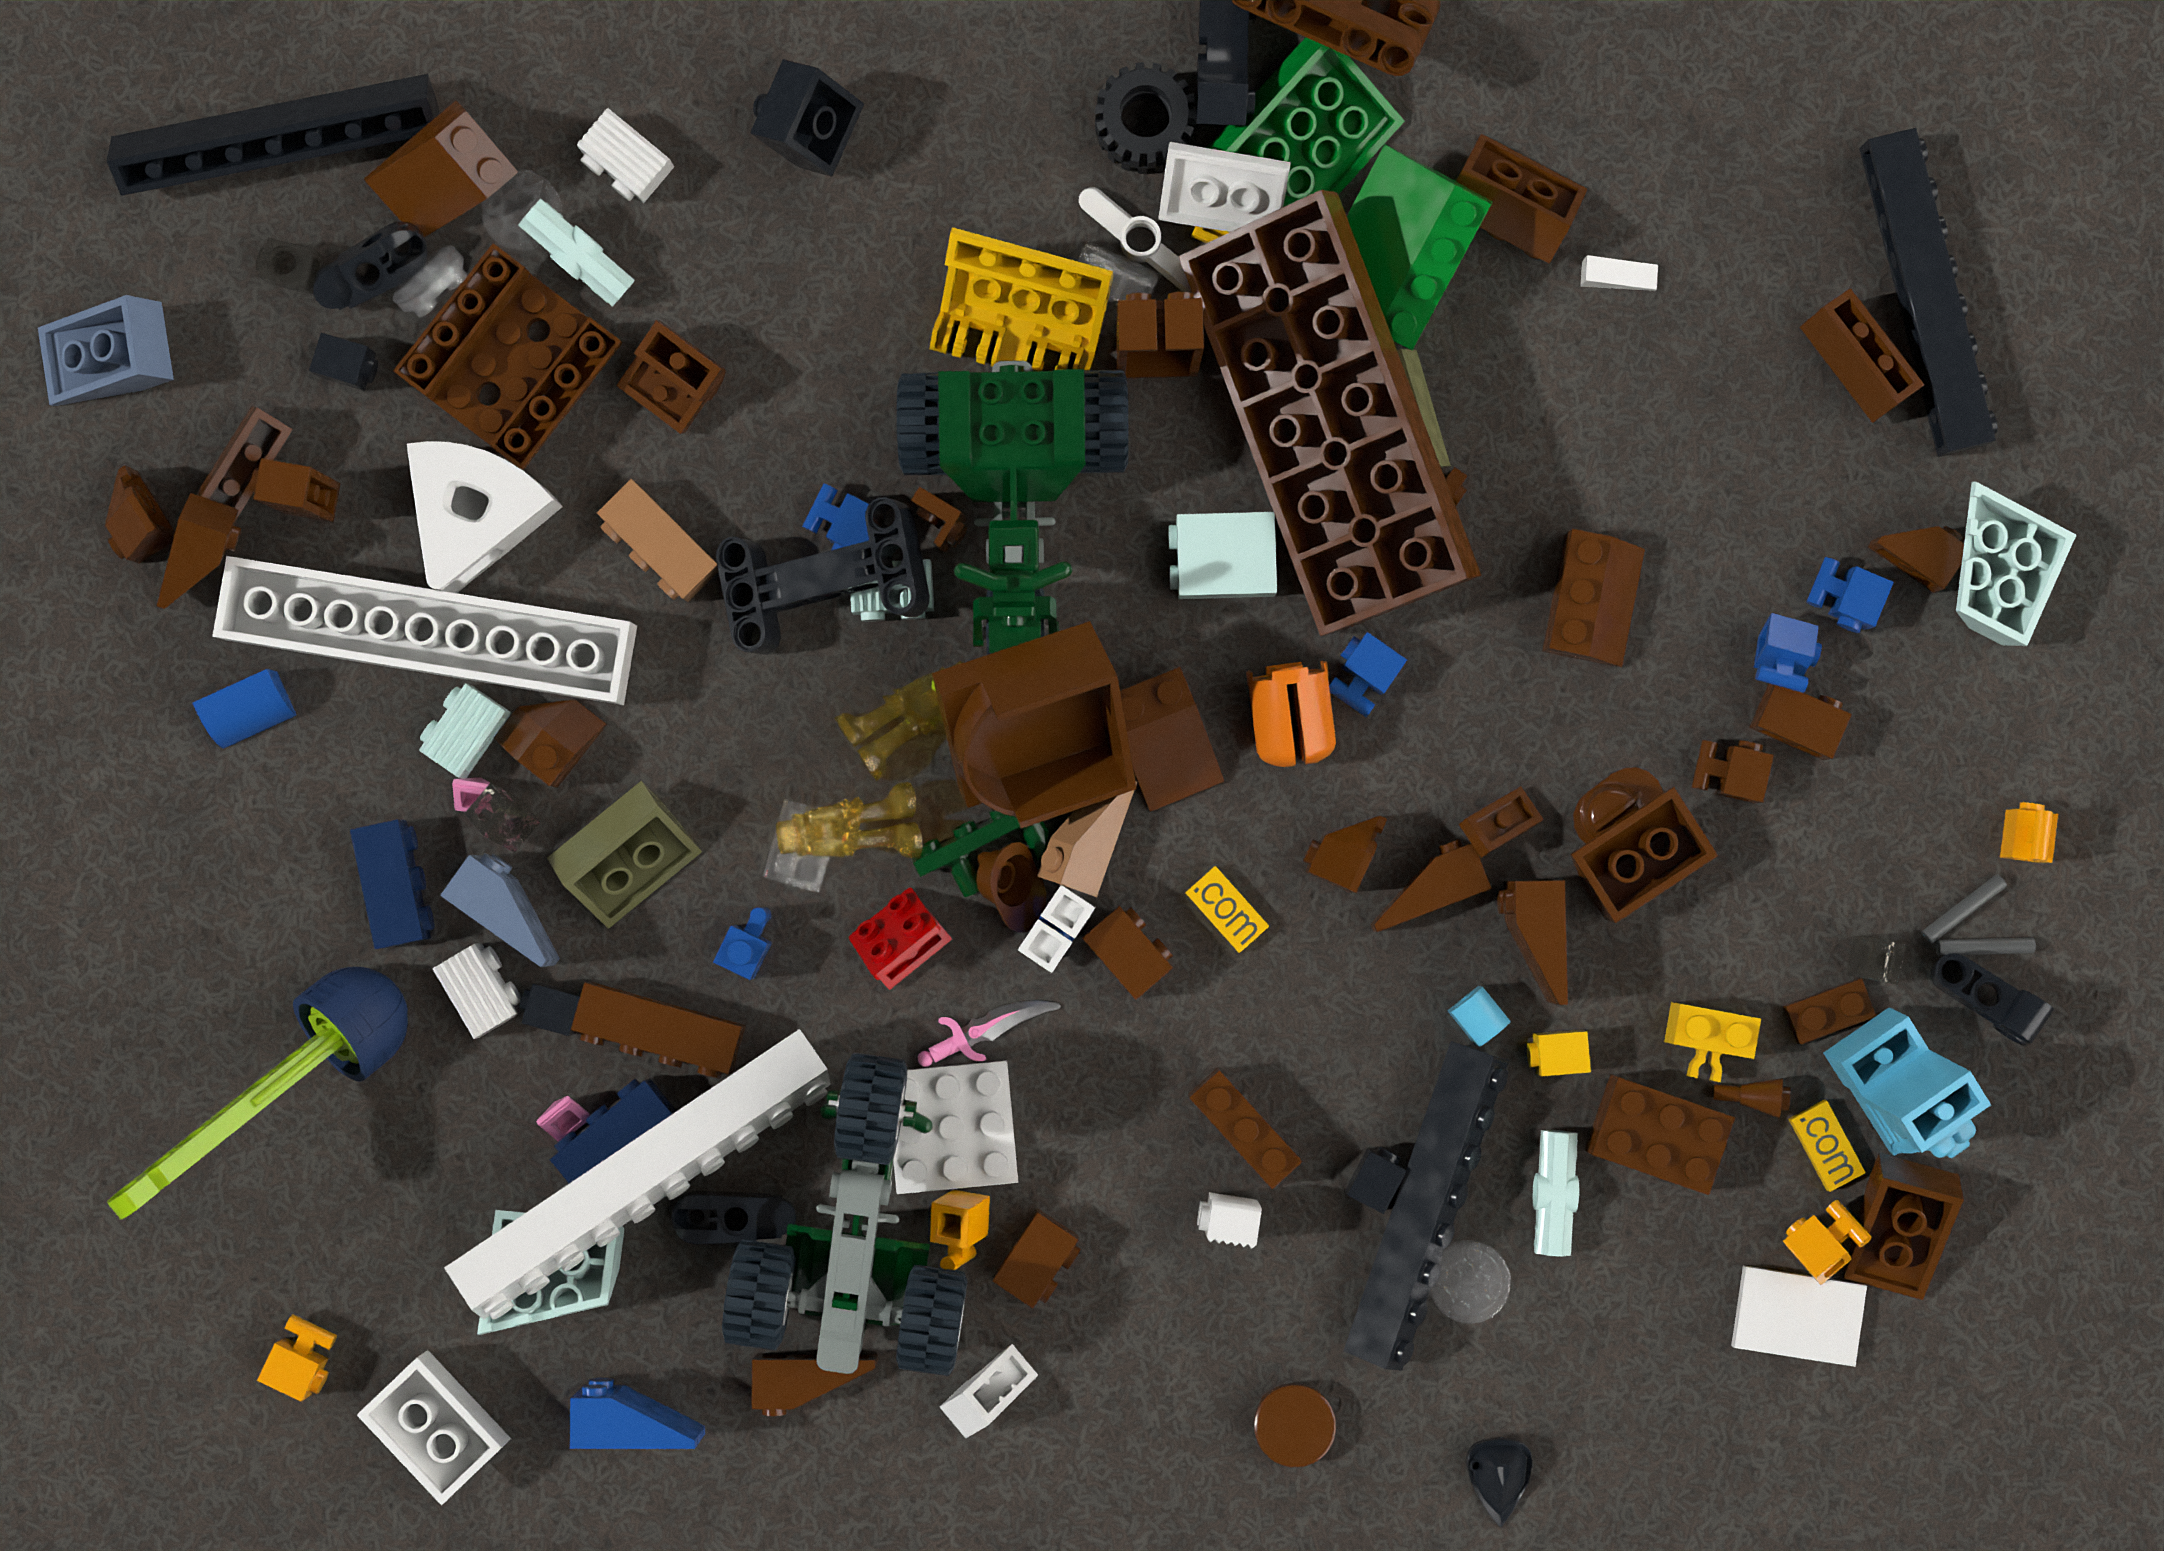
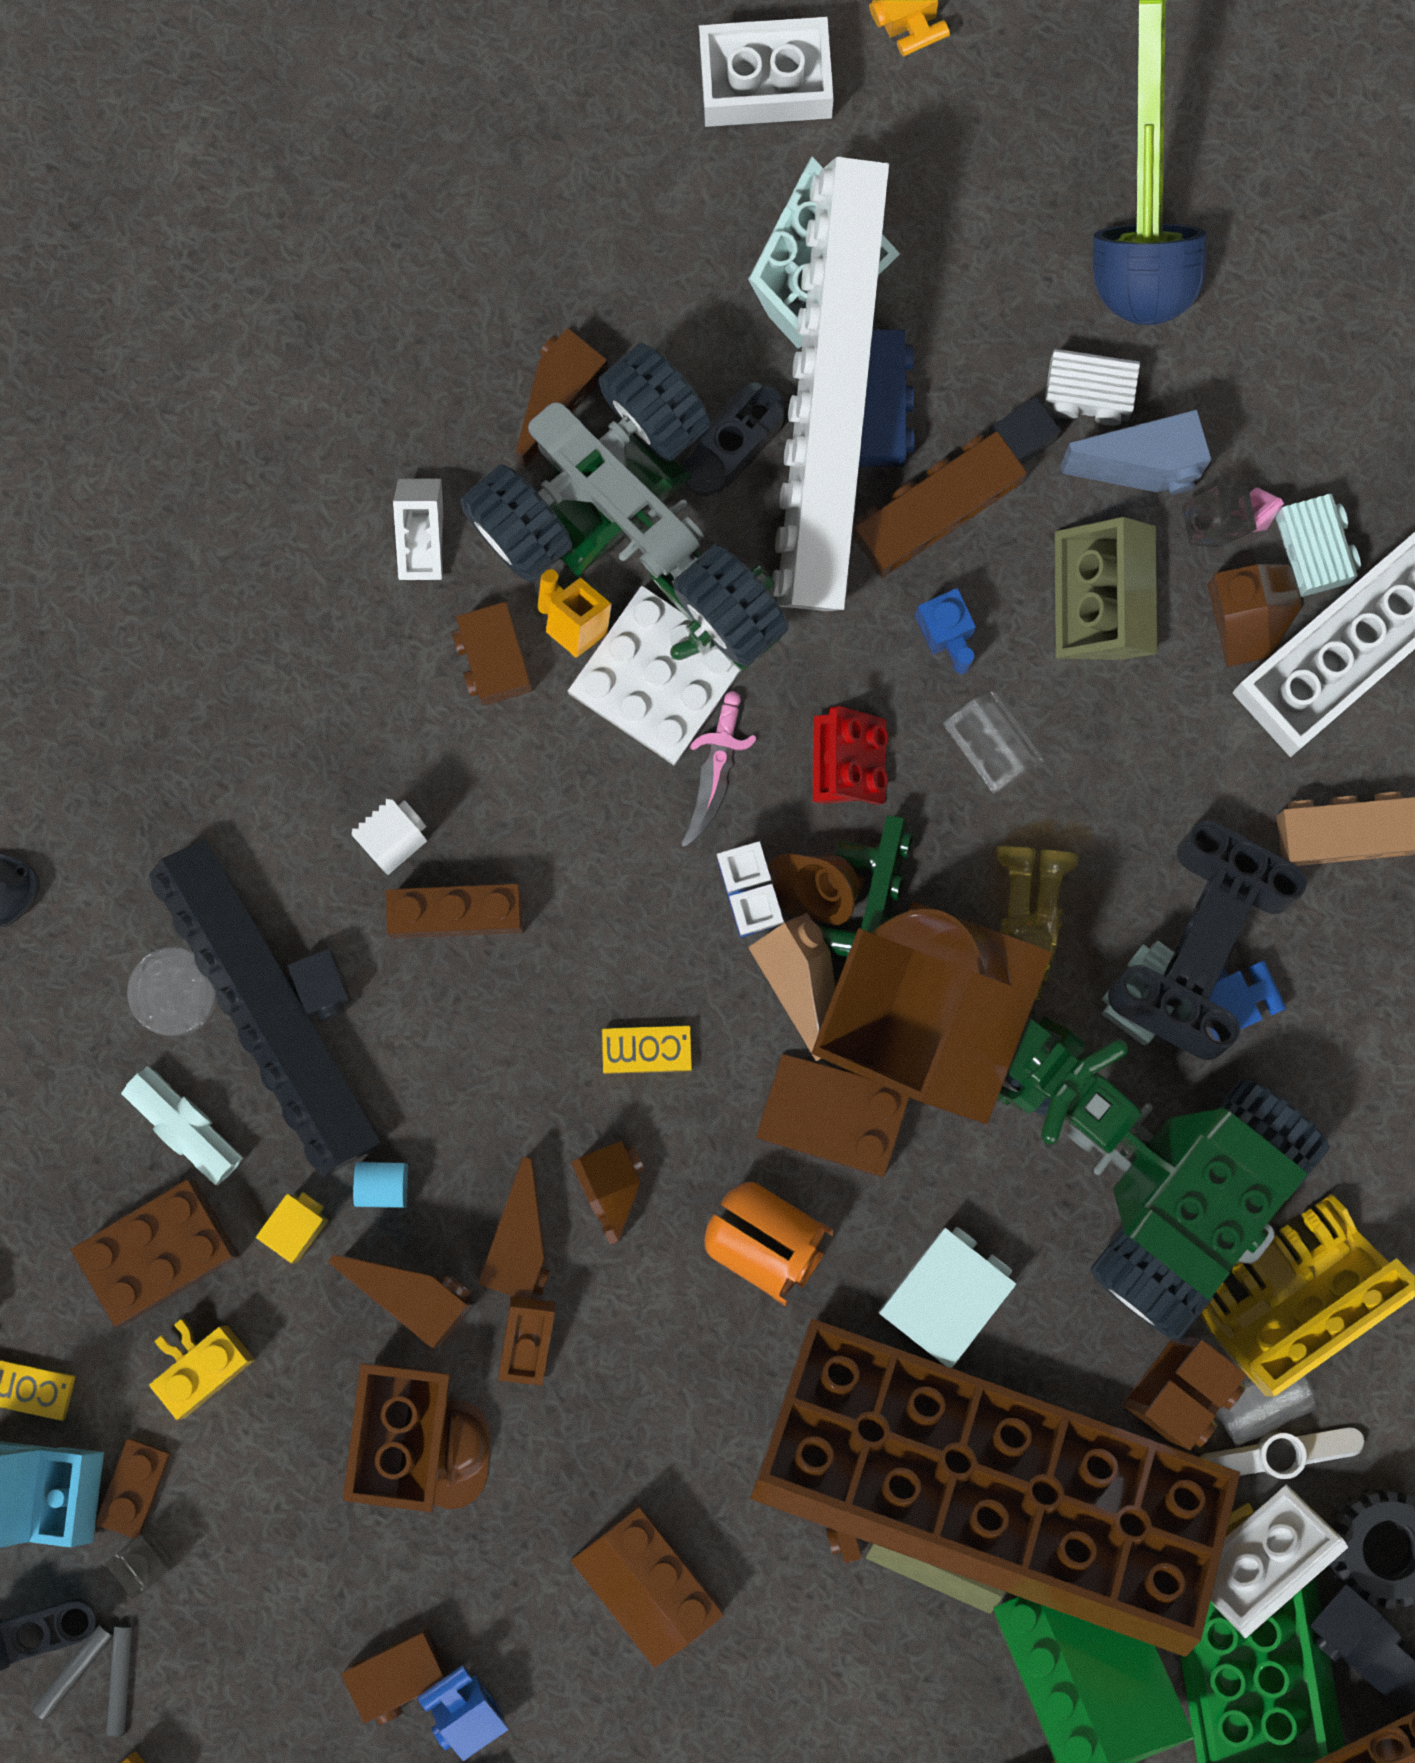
camera: 135 degrees right, 5 degrees down
(392, 883) = (1237, 386): dark blue brick -> none
(563, 1118) = (929, 369): bright pink slope -> none
(625, 1419) = (642, 224): blue slope -> none
(835, 827) = (985, 776): clear yellow piece -> none
(938, 512) = (1180, 1083): reddish brown bracket -> none
(1128, 951) = (680, 936): reddish brown brick -> none
(1294, 1425) = (180, 752): reddish brown tile -> none
(1371, 666) = (749, 1343): blue brick -> none
(1740, 774) = (394, 1584): reddish brown brick -> none
(1763, 1096) = (111, 1369): reddish brown cone -> none

